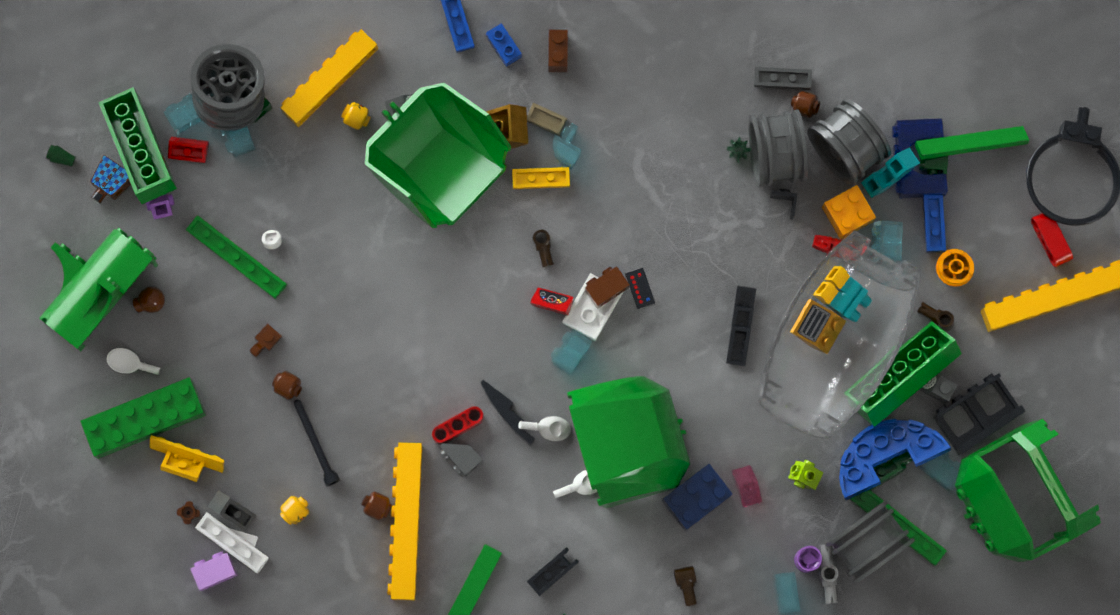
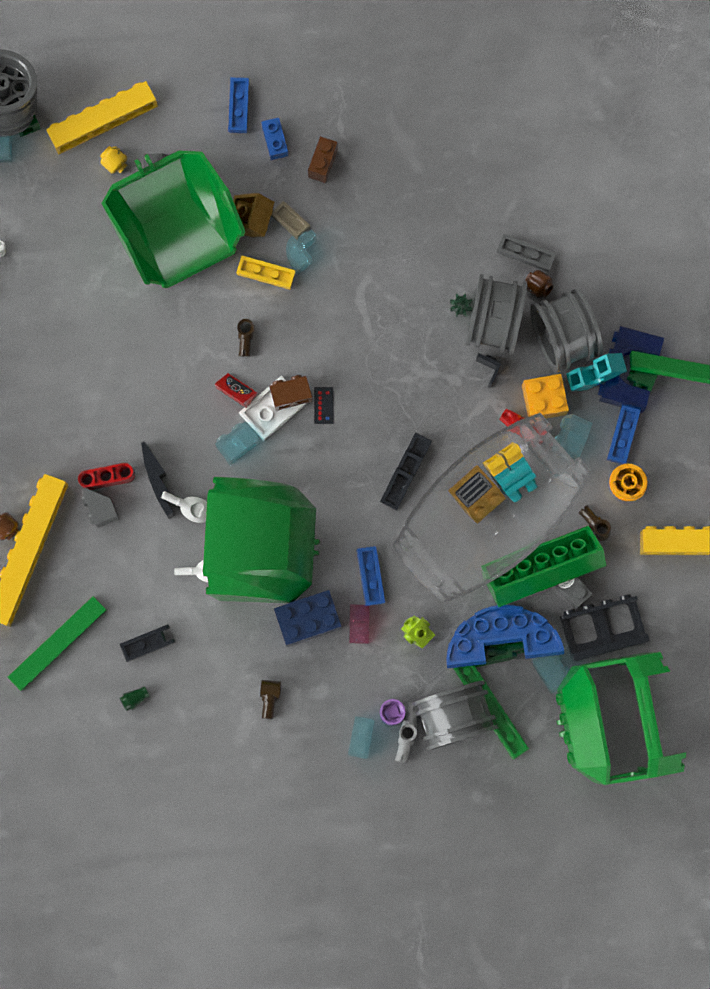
camera: 20 degrees right, 0 degrees up
(742, 437) = (370, 576): none -> blue plate

